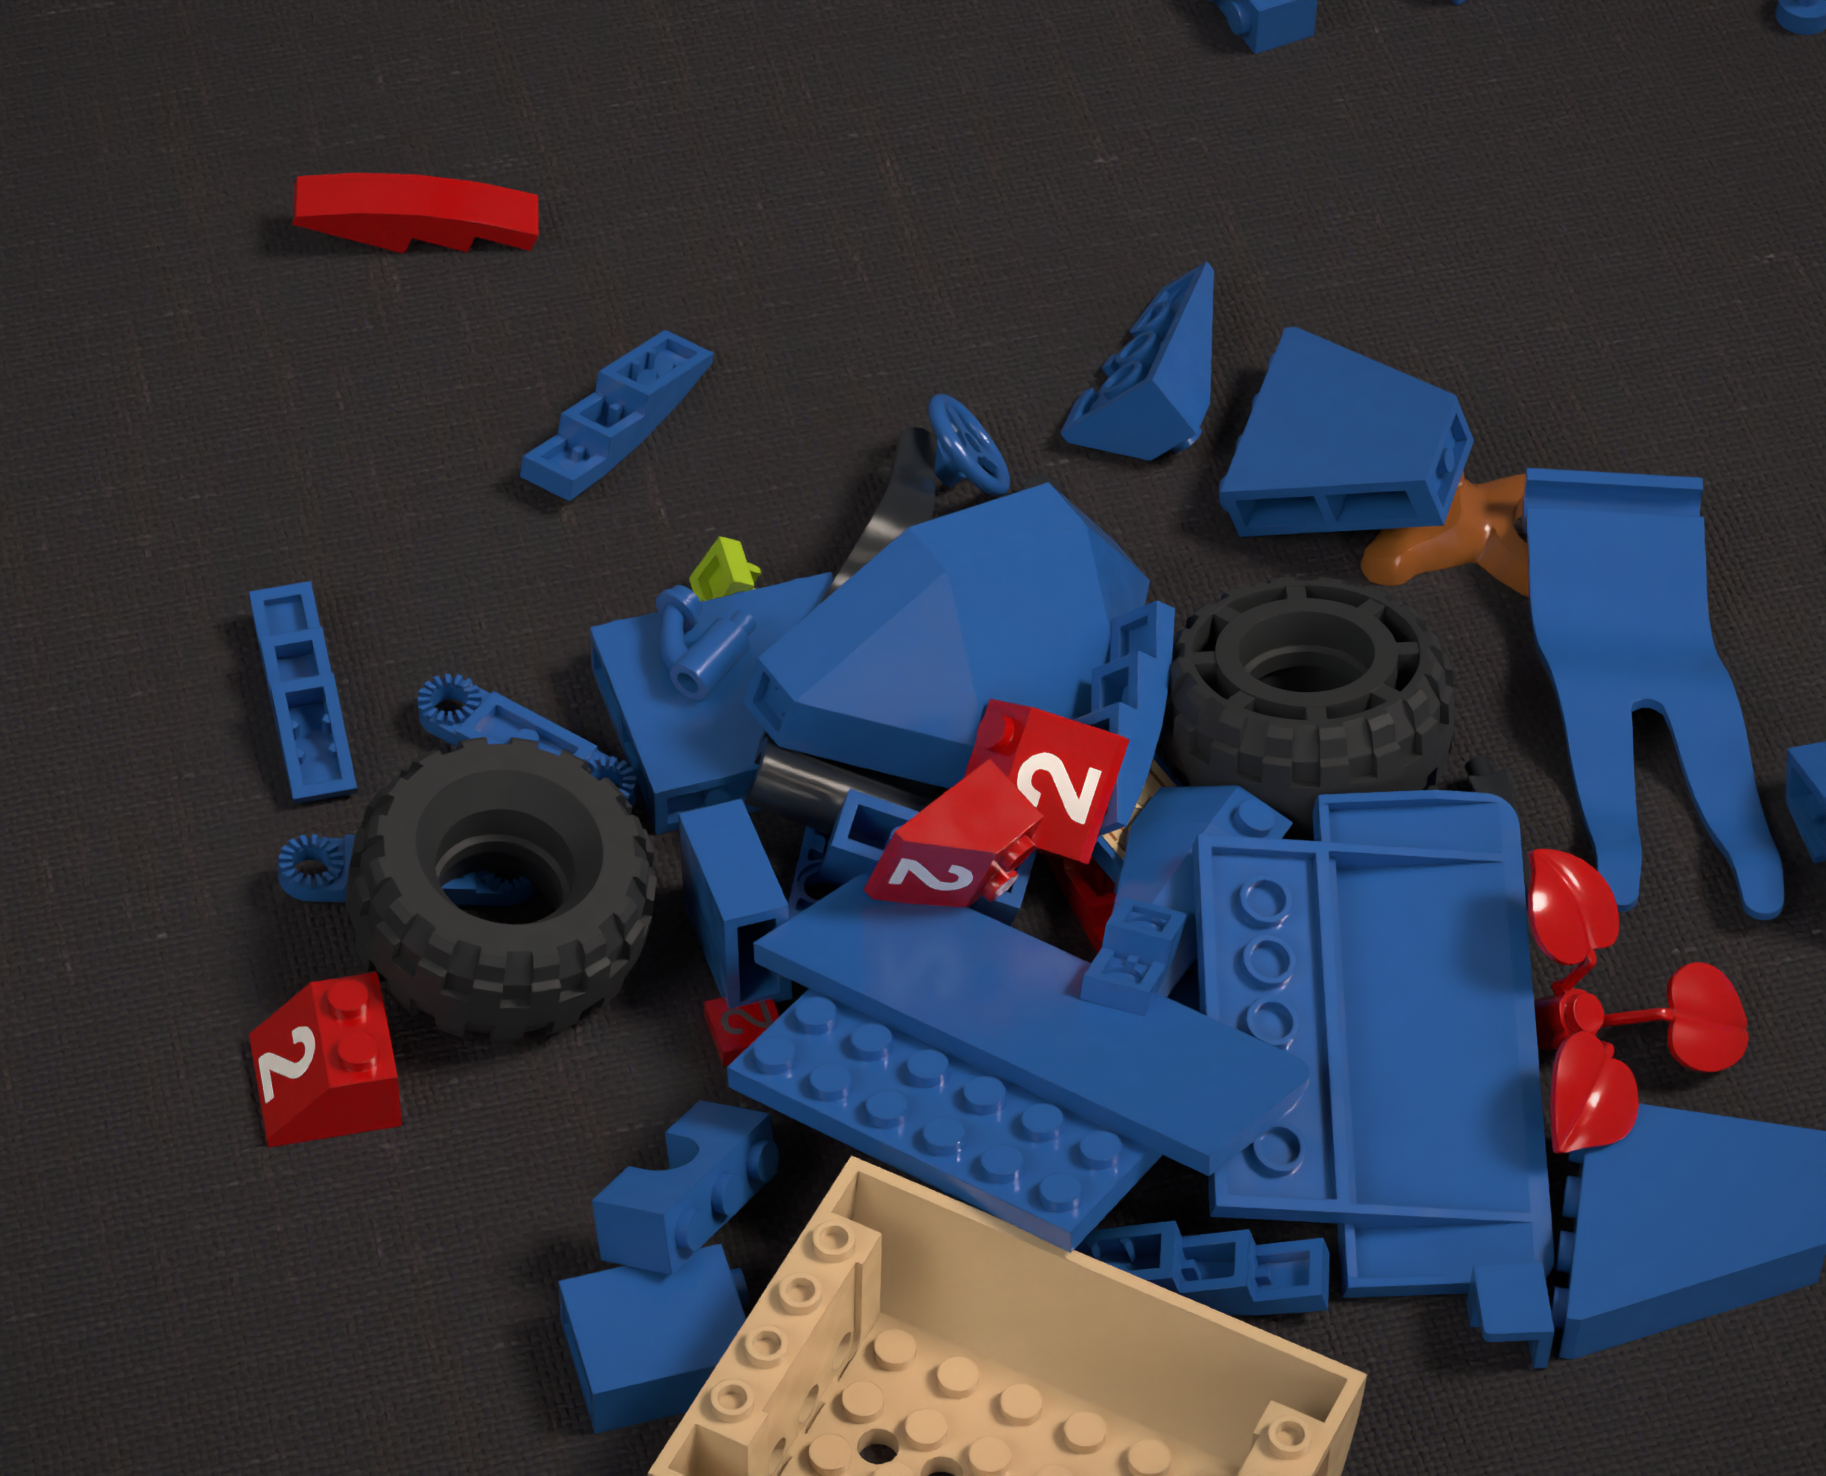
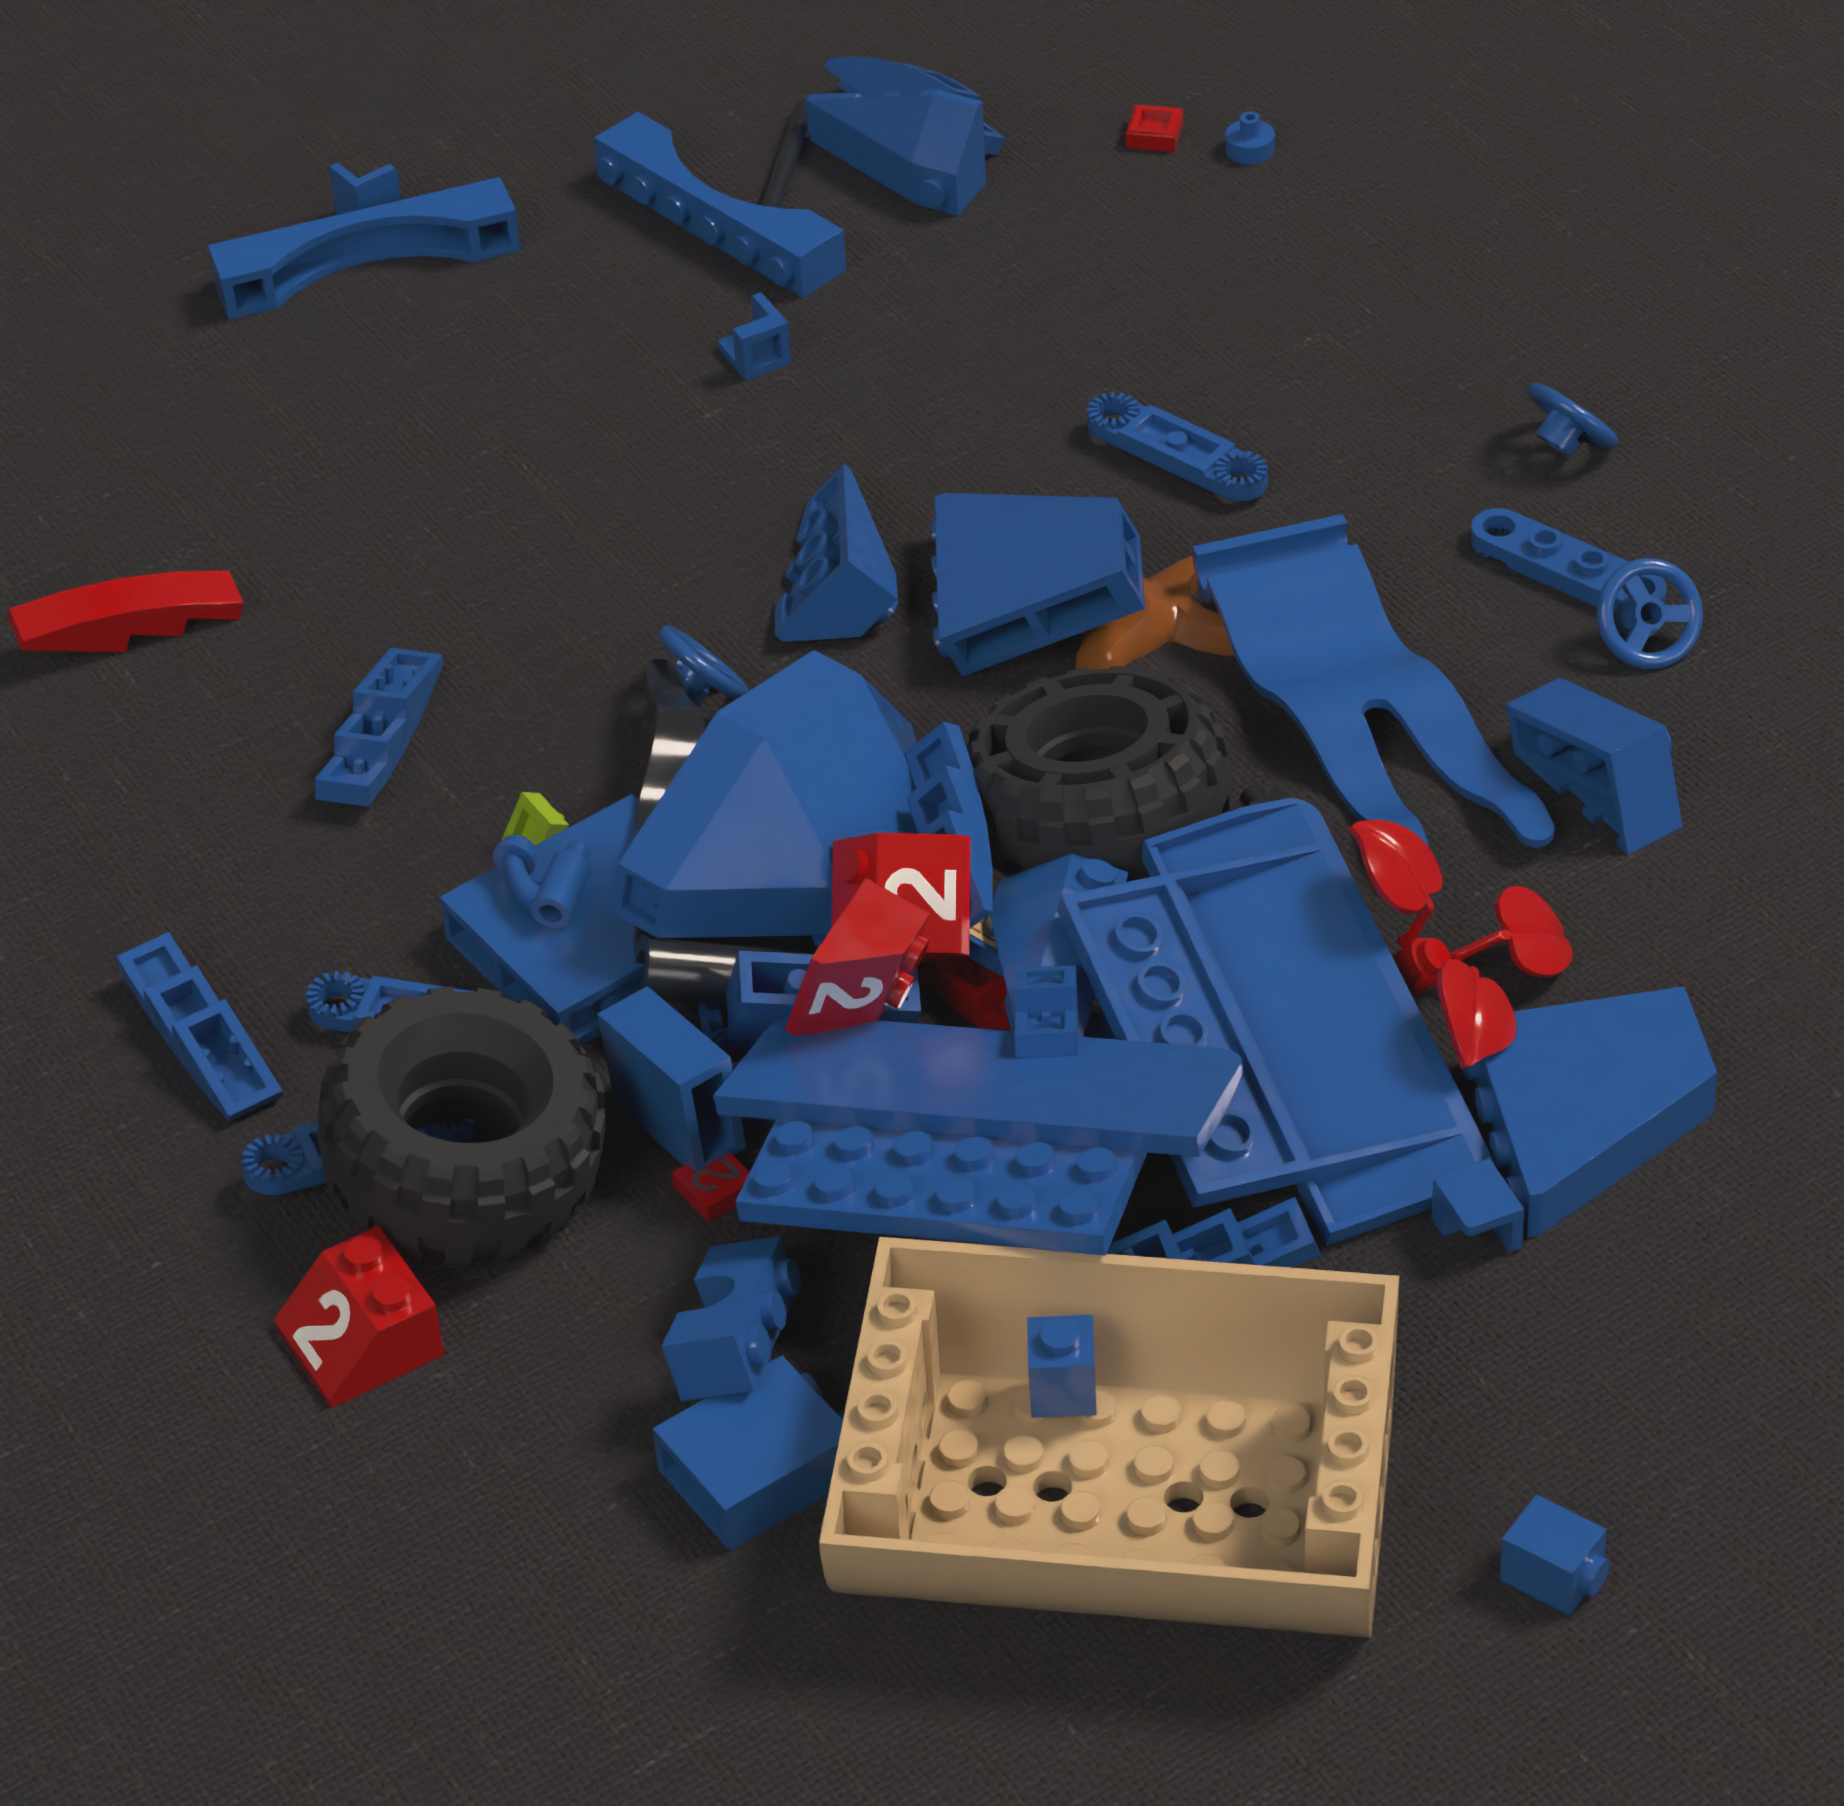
camera: 15 degrees left, 5 degrees down
(993, 1351) = (1061, 1366): none -> blue brick
(1182, 97) = (760, 343): none -> blue panel
(1572, 342) = (1177, 446): none -> blue plate

